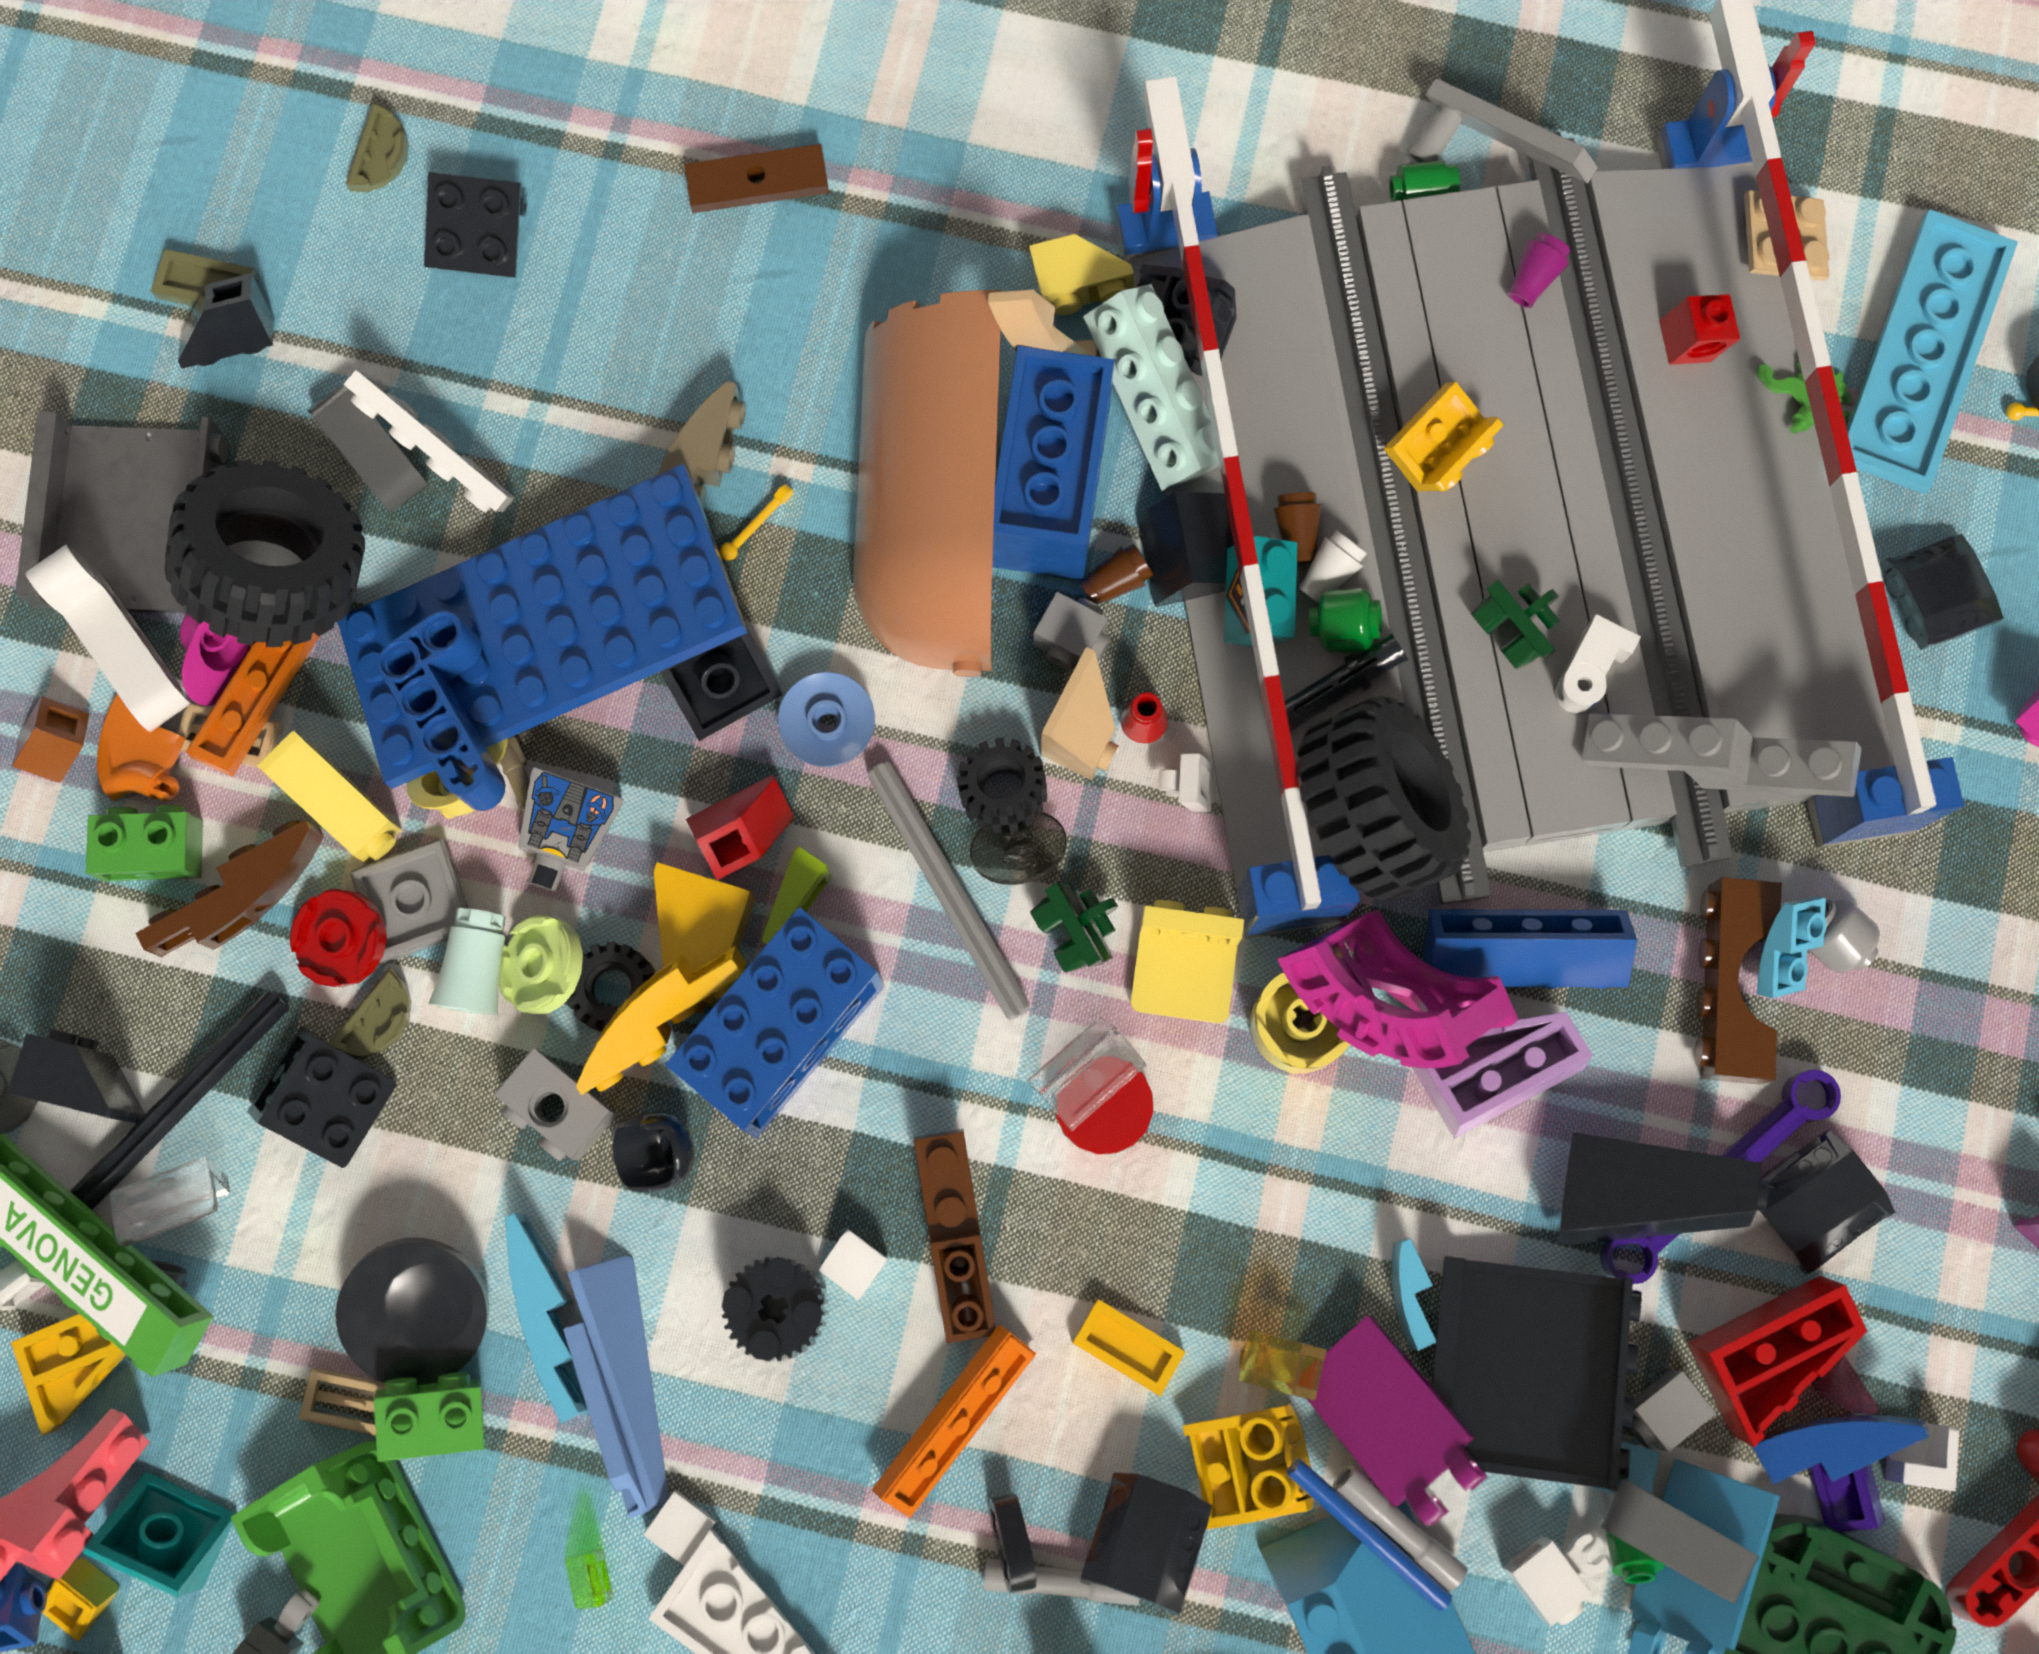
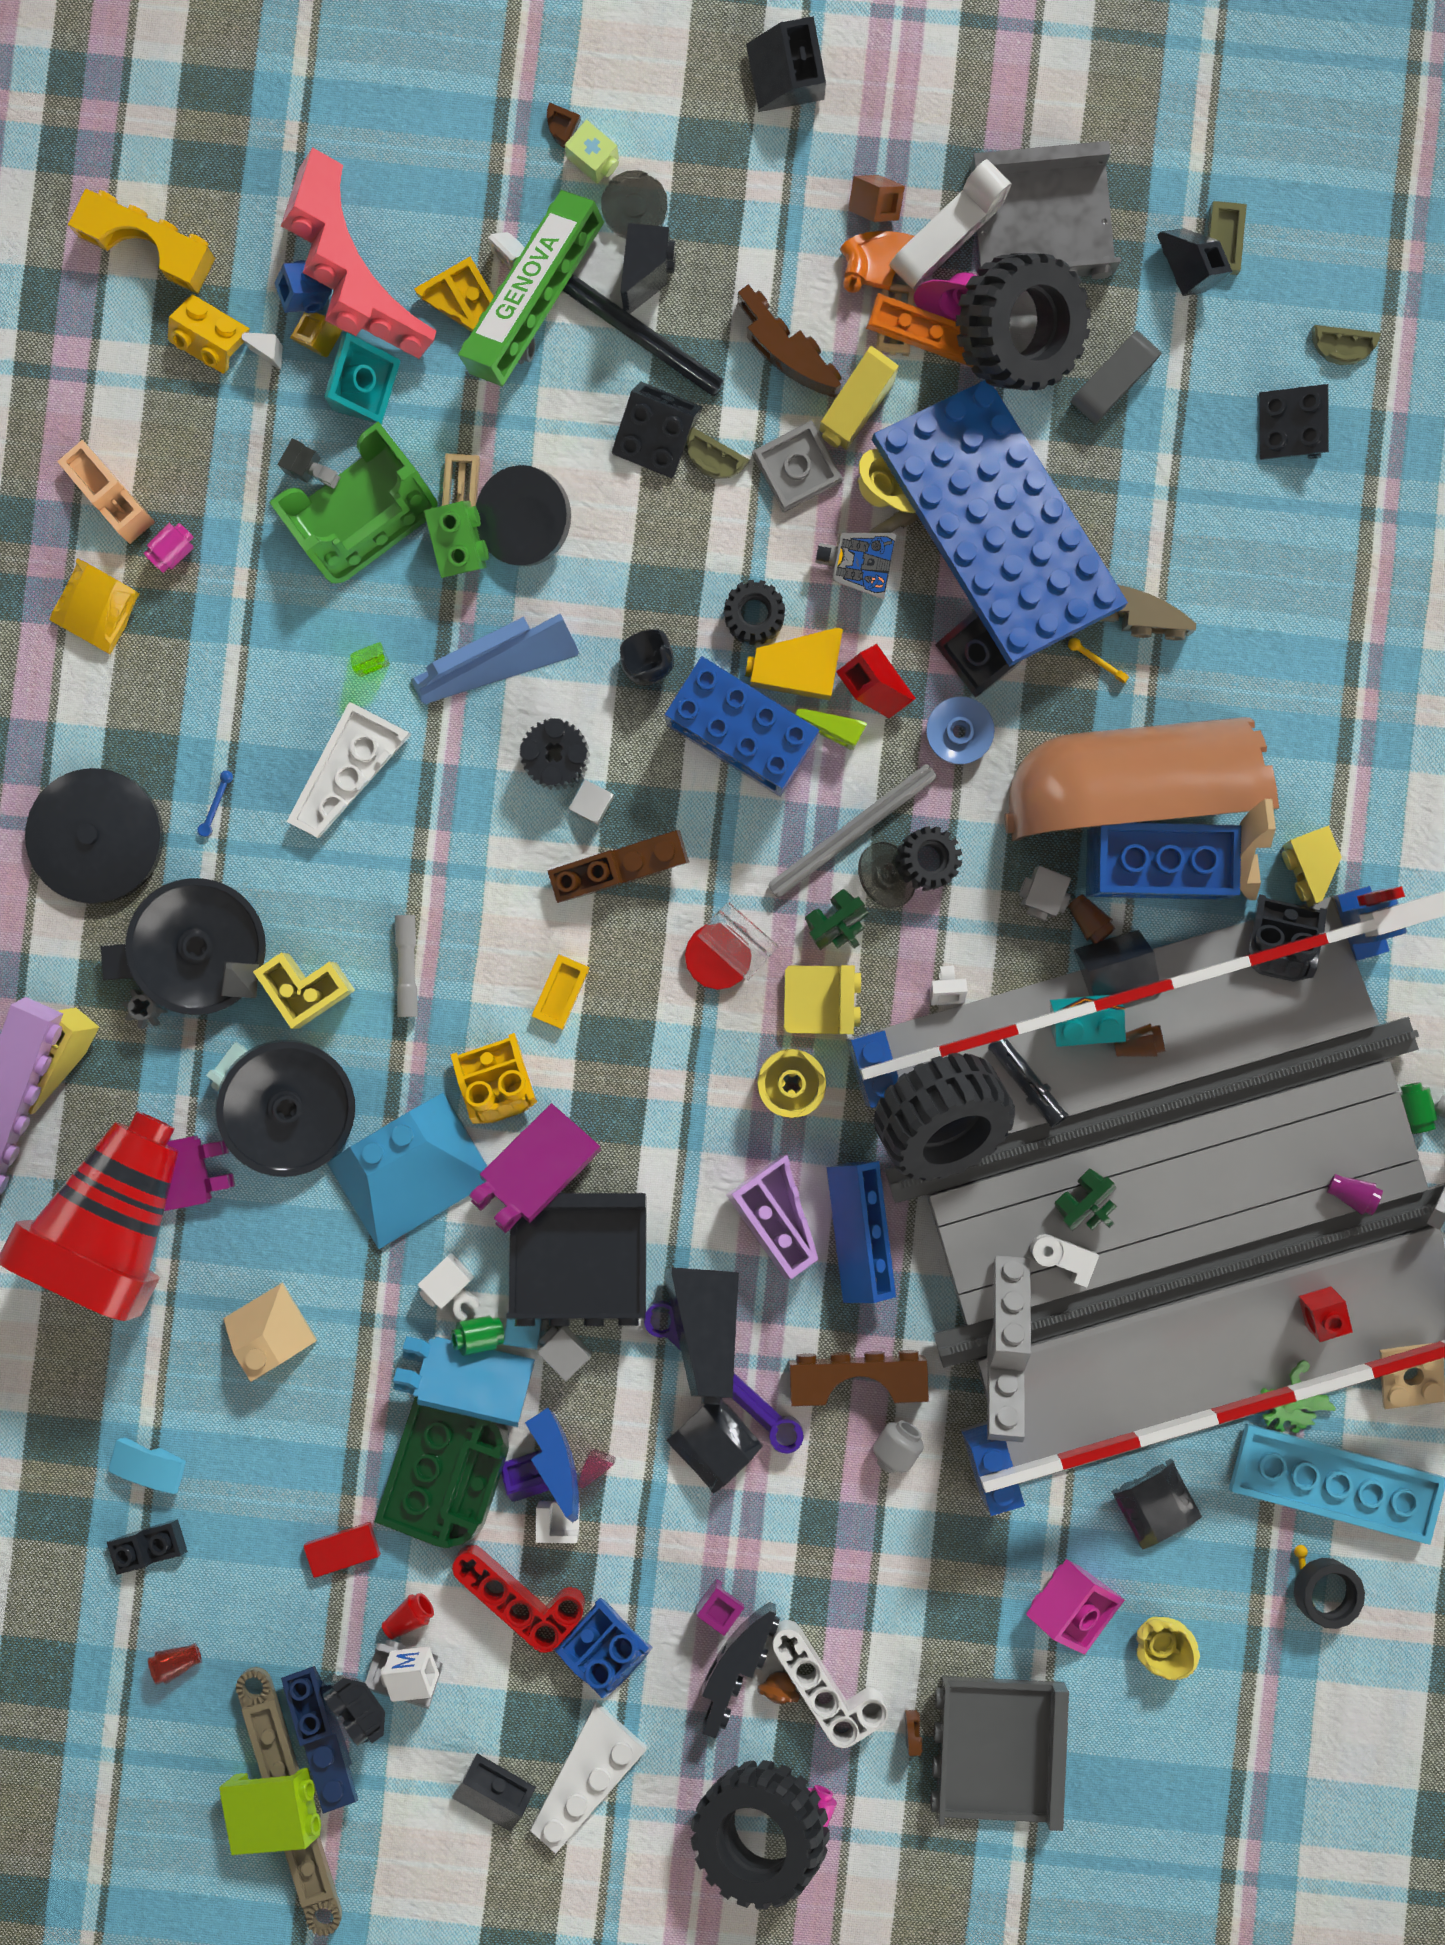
camera: 85 degrees right, 10 degrees up
(144, 845) = (810, 277): bright green brick -> none
(167, 1200) = (573, 341): clear panel -> none
(338, 938) = (764, 421): red tile -> none
(407, 430) = (1140, 397): white wing -> none
(446, 720) = (921, 470): blue beam -> none
(471, 963) = (757, 514): light aqua plant -> none
(537, 1297) = (543, 596): medium azure slope -> none
(540, 964) = (763, 560): yellowish green tile -> none
(583, 1116) = (668, 606): light grey brick -> none
(640, 1024) = (731, 636): yellow slope -> none
(680, 1527) = (409, 713): white tile -> none
(729, 180) = (1352, 601): reddish brown tile -> none
(954, 1421) = (498, 882): orange tile -> none
(1012, 1543) = (425, 930): black beam -> none
(1082, 723) = (979, 906): tan slope -> none
(1144, 728) = (981, 955): red cone -> none
(1147, 1540) = (437, 1017): black slope -> none
(1155, 385) = (1232, 926): light aqua brick -> none
(1281, 1365) = (561, 1093): clear yellow brick -> none
(1332, 566) = (1113, 1068): white cone -> none
(1346, 620) = (1074, 1082): green head -> none
(1369, 1534) = (460, 1161): blue bar -> none
(1408, 1279) = (627, 1173): medium azure slope -> none
(1423, 1548) = (456, 1197): light grey piece -> none
(1442, 440) = (1215, 1136): yellow bracket -> none
(1446, 1007) = (814, 1104): dark pink fence -> none
(1678, 1541) = (480, 1360): dark grey beam -> none
(1775, 1352) = (611, 1419): red wedge -> none
(1784, 958) = (886, 1409): medium azure slope -> none

